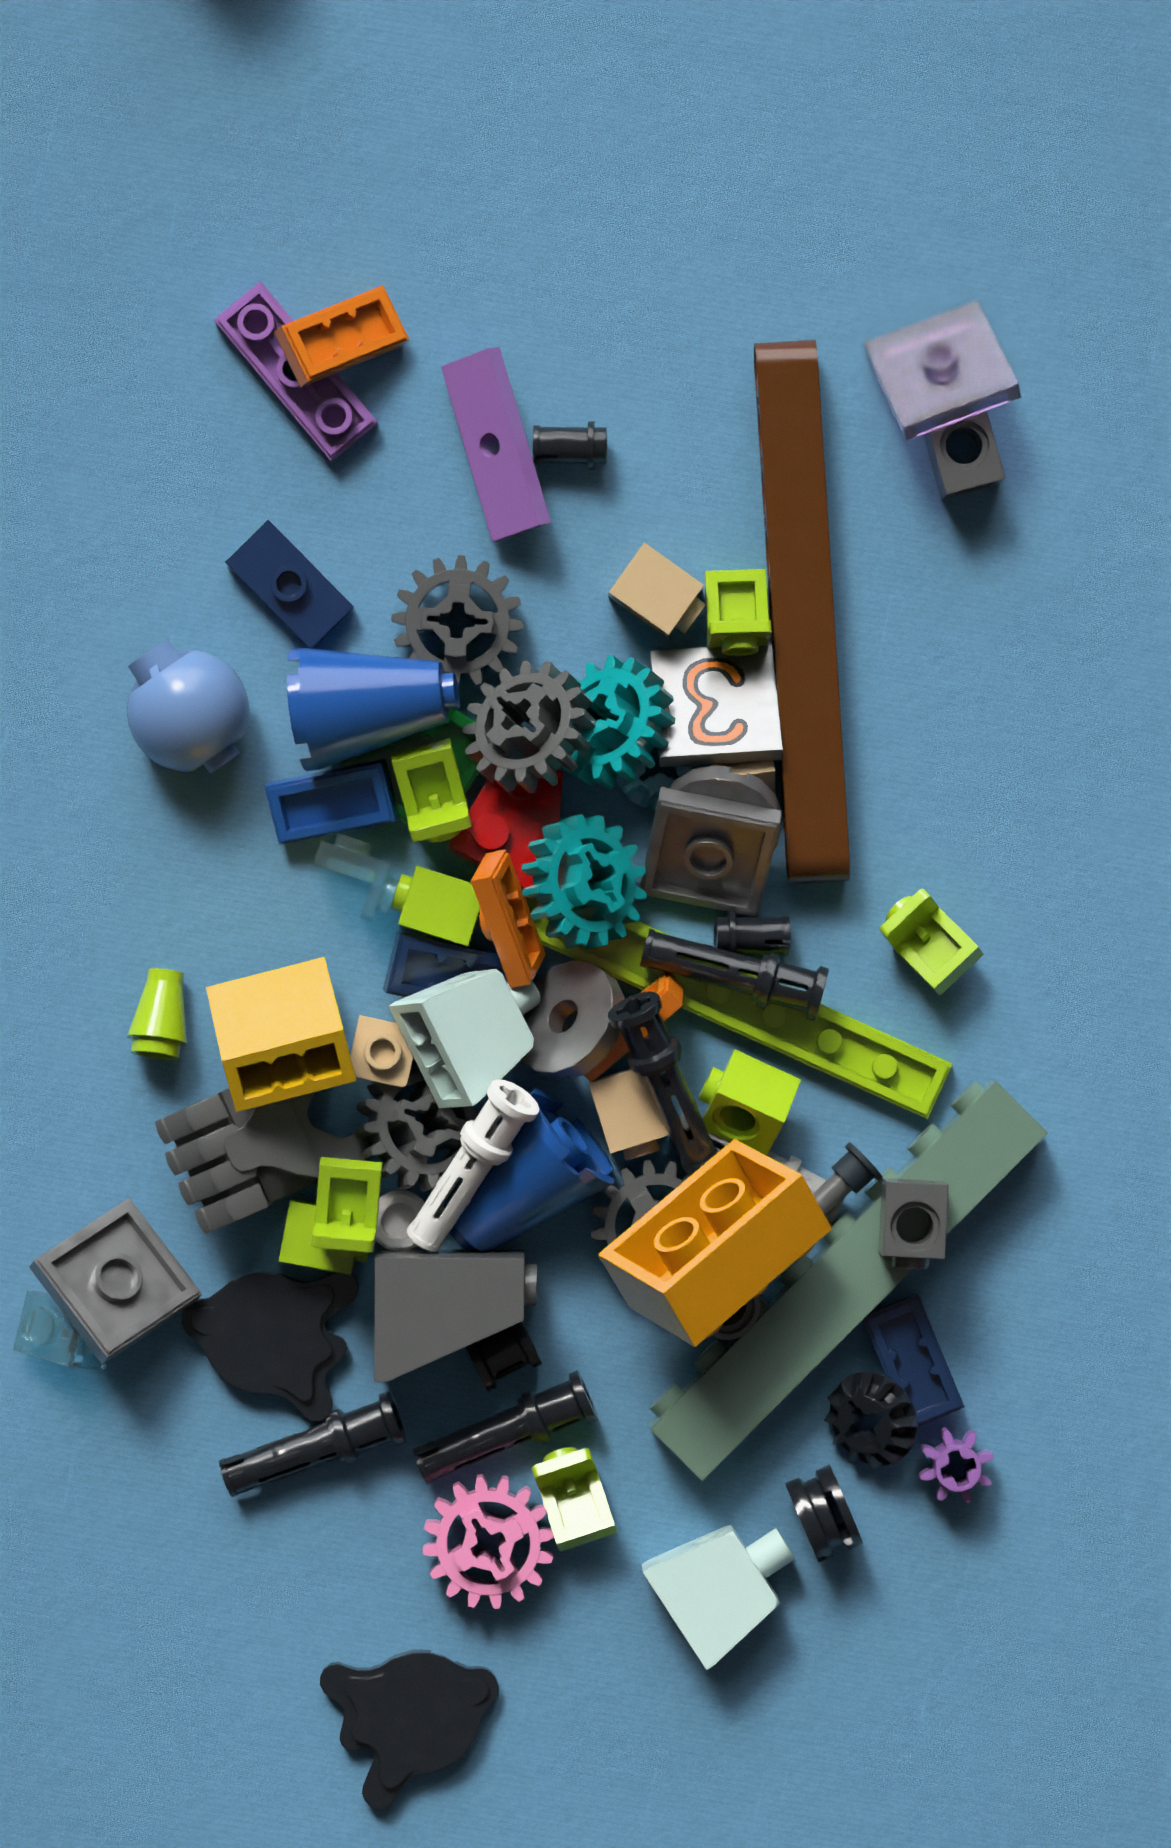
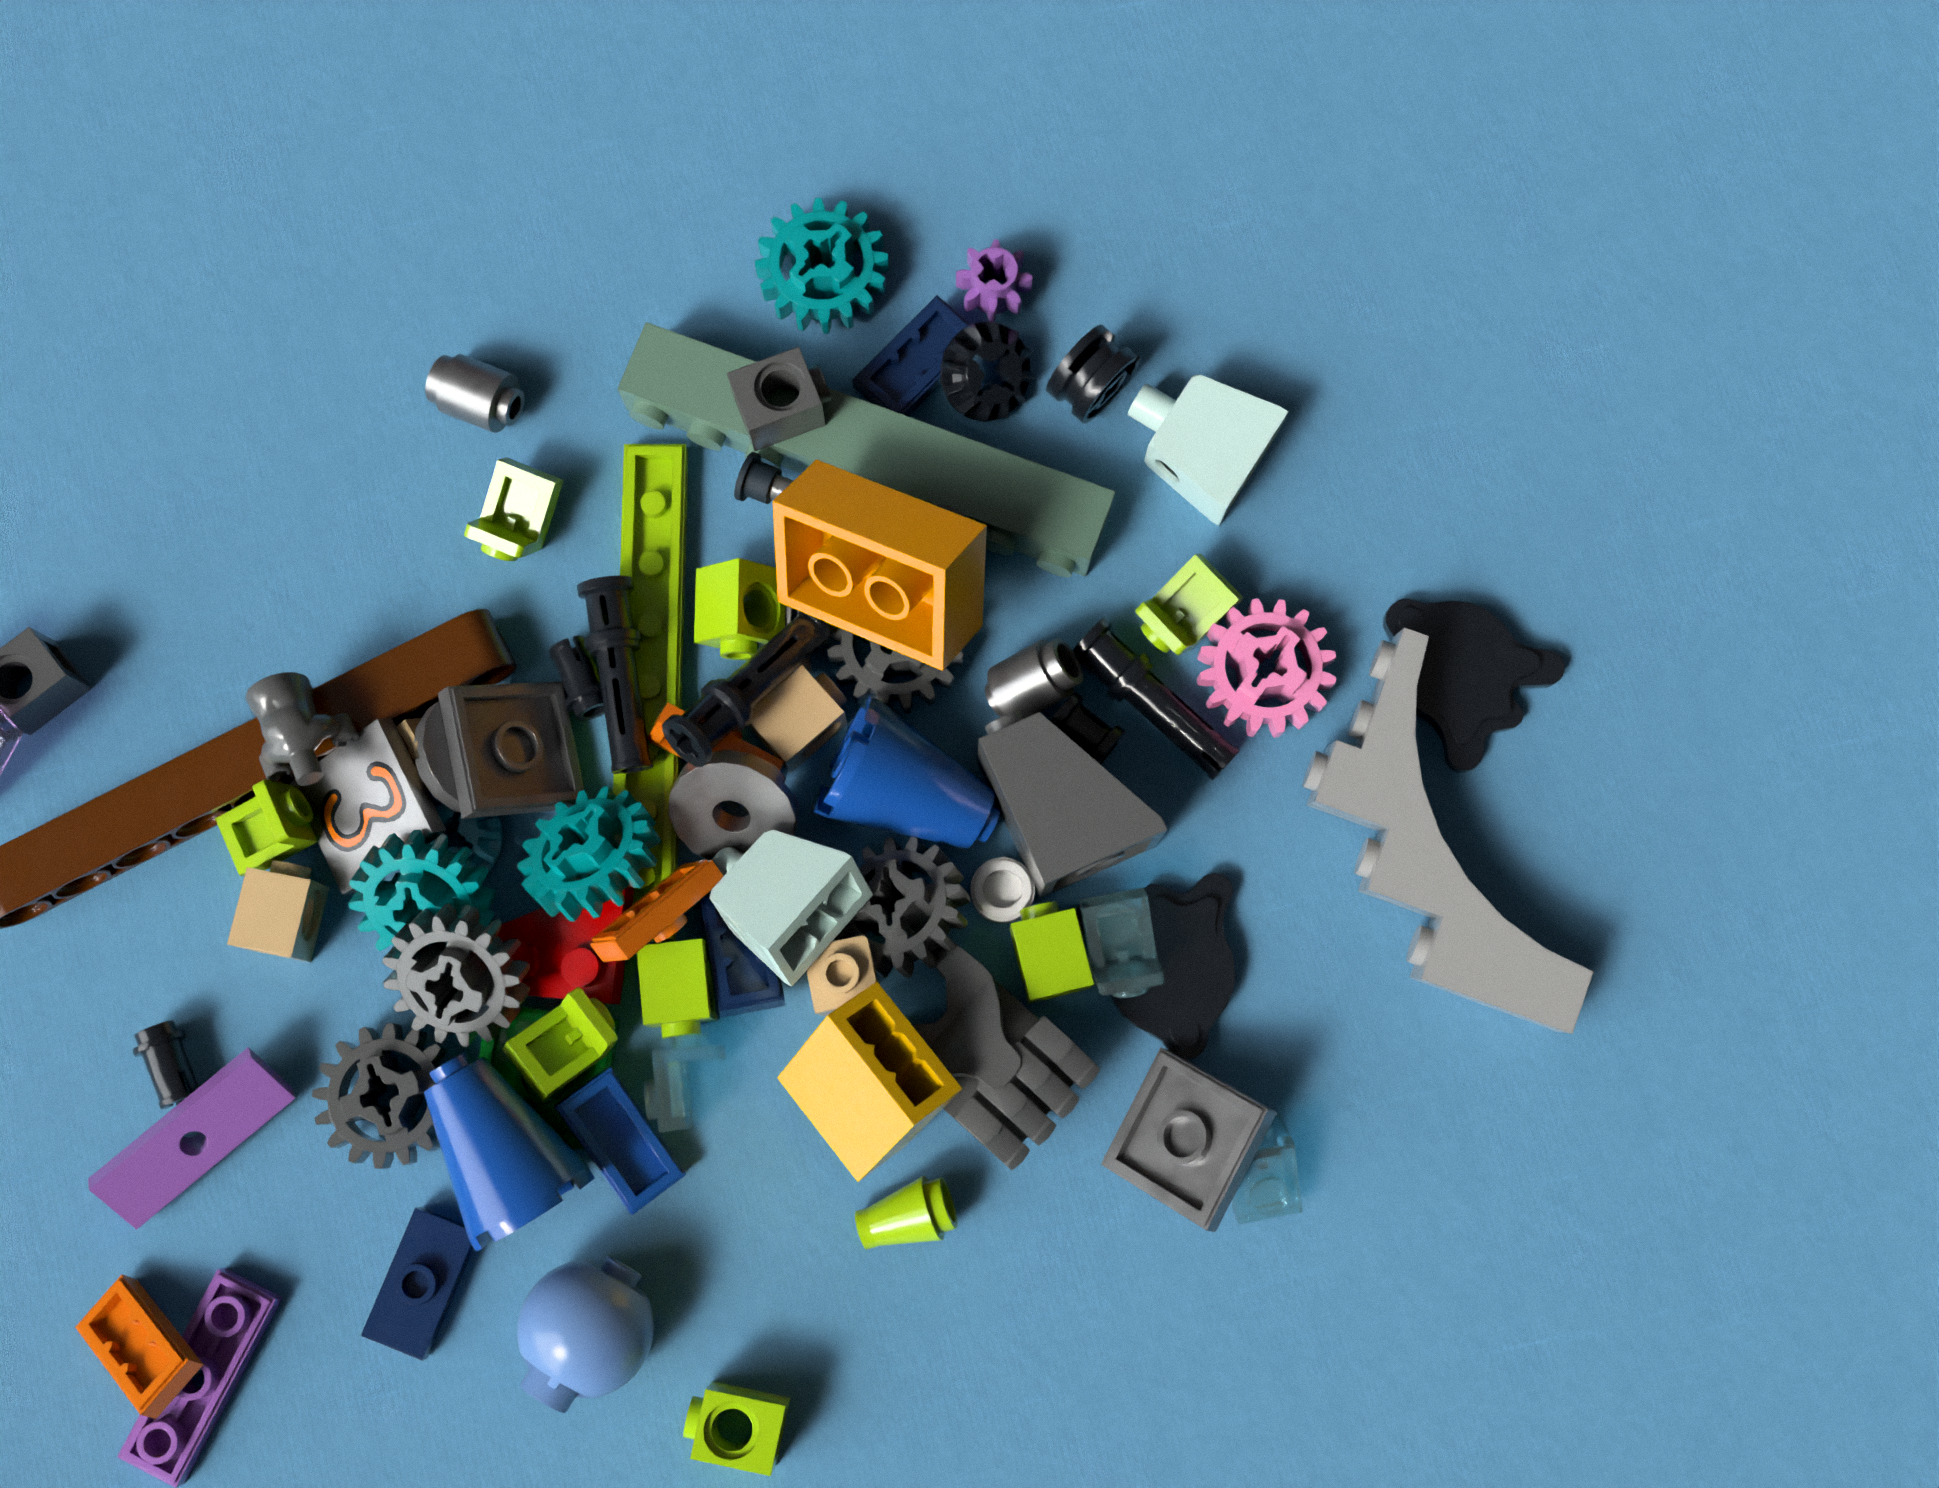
camera: 115 degrees left, 10 degrees down
(25, 806) = (768, 1421): none -> lime brick
(259, 1580) = (1380, 786): none -> light grey arch
(302, 1300) = (1121, 943): none -> clear light blue bracket
(339, 1437) = (1235, 851): black pin -> none
(347, 1206) = (1008, 938): lime bracket -> none
(479, 1140) = (884, 825): white pin -> none
(568, 1331) = (1033, 678): none -> flat silver brick
(802, 676) = (293, 727): none -> dark grey piece
(1059, 950) = (475, 392): none -> flat silver brick
(1066, 1304) = (822, 291): none -> teal gear

